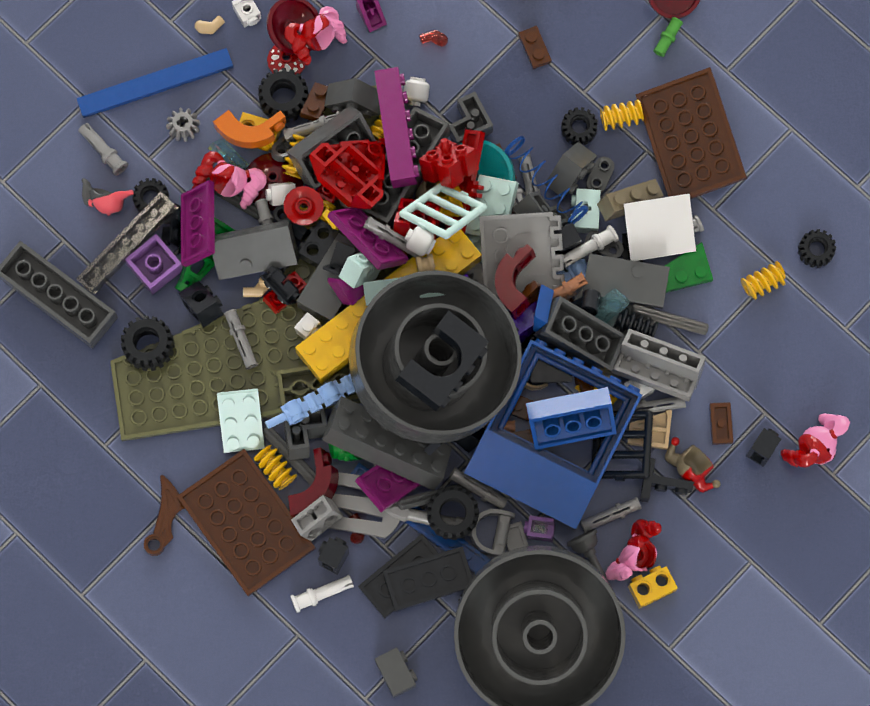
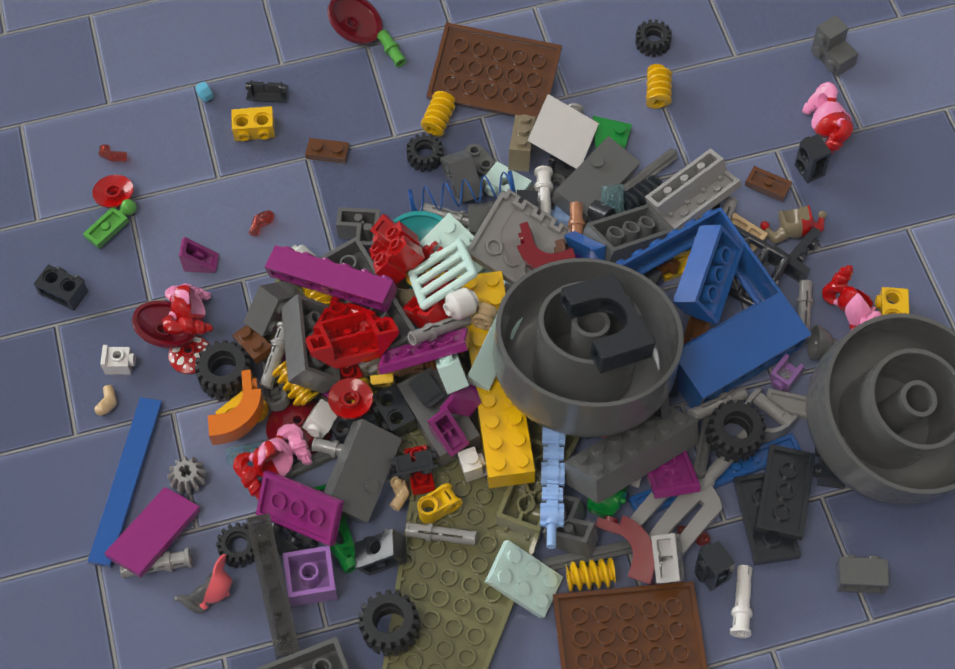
camera: 55 degrees left, 15 degrees down
(124, 129) = (152, 532): none -> magenta tile
(267, 325) = (441, 500): none -> yellow piece
(314, 295) = (447, 432): none -> magenta slope

